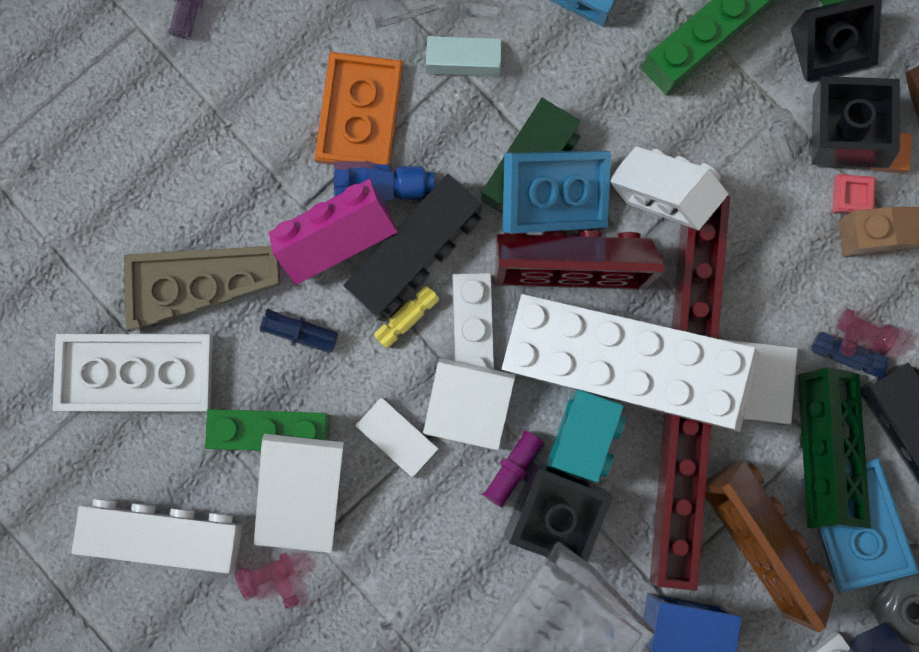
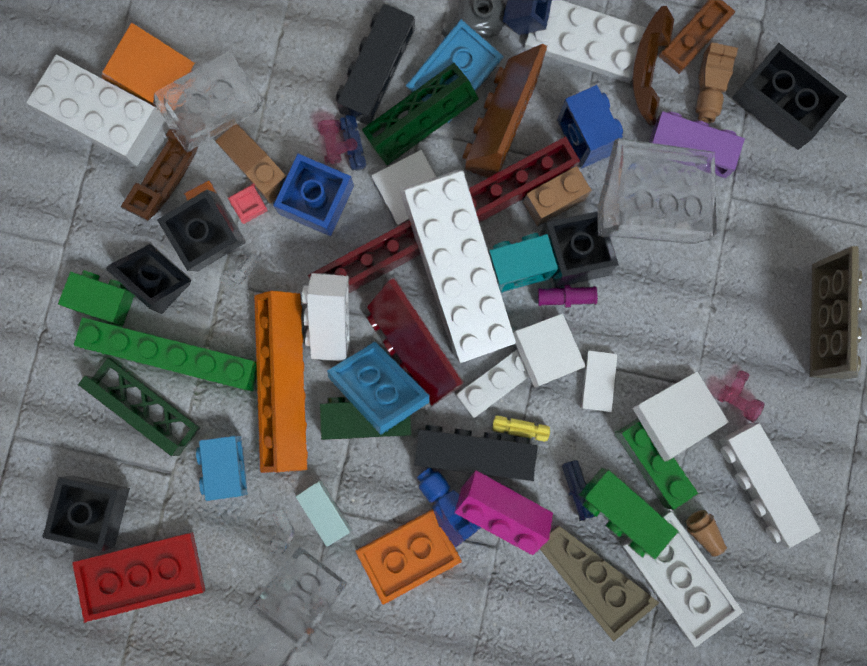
camera: 125 degrees left, 0 degrees up
(159, 433) = (706, 532): none -> medium nougat cone
(238, 357) = (627, 514): none -> green brick
(630, 96) = (280, 382): none -> orange brick
(634, 537) = (557, 196): none -> medium nougat brick
(816, 267) = (314, 194): none -> blue brick

